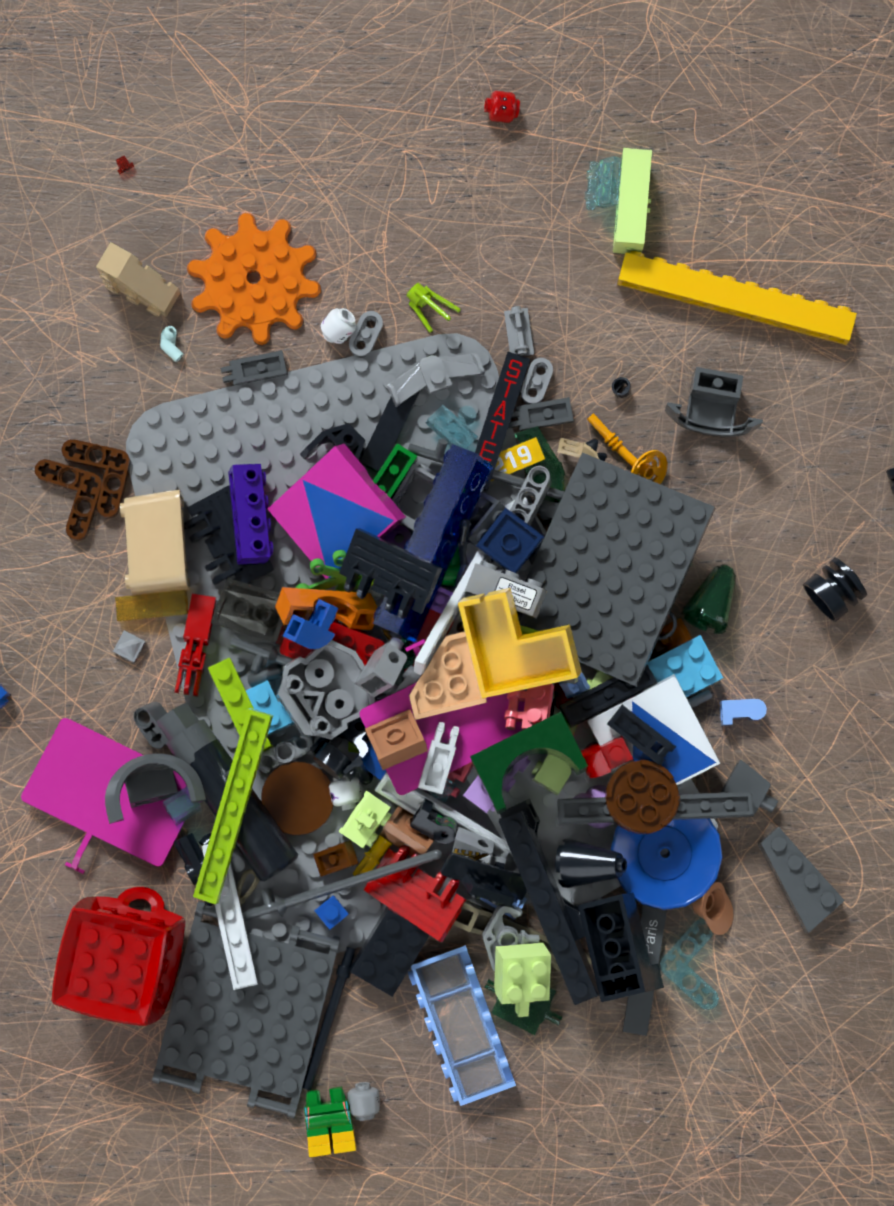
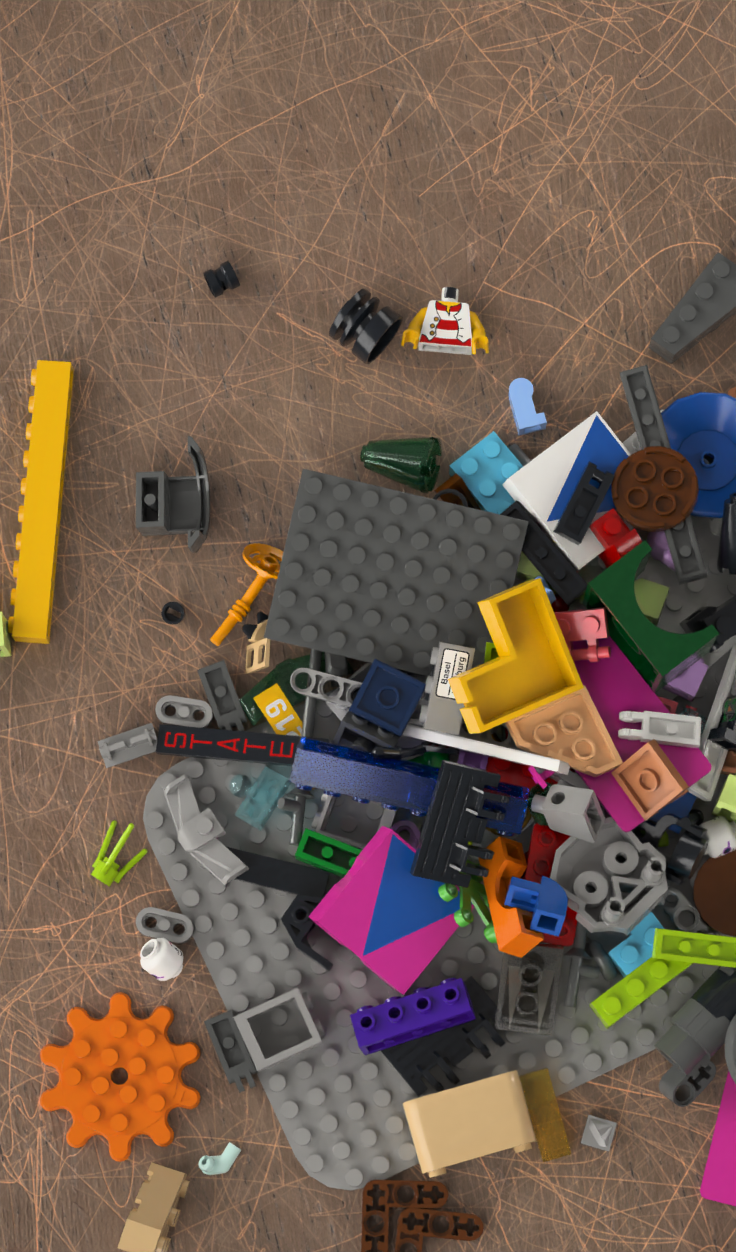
camera: 95 degrees left, 5 degrees down
(198, 632) = (564, 1051): red arm -> none
(254, 384) = (250, 1039): none -> light grey window
(746, 779) = (606, 388): dark grey torso -> none
(823, 658) = (446, 327): none -> torso

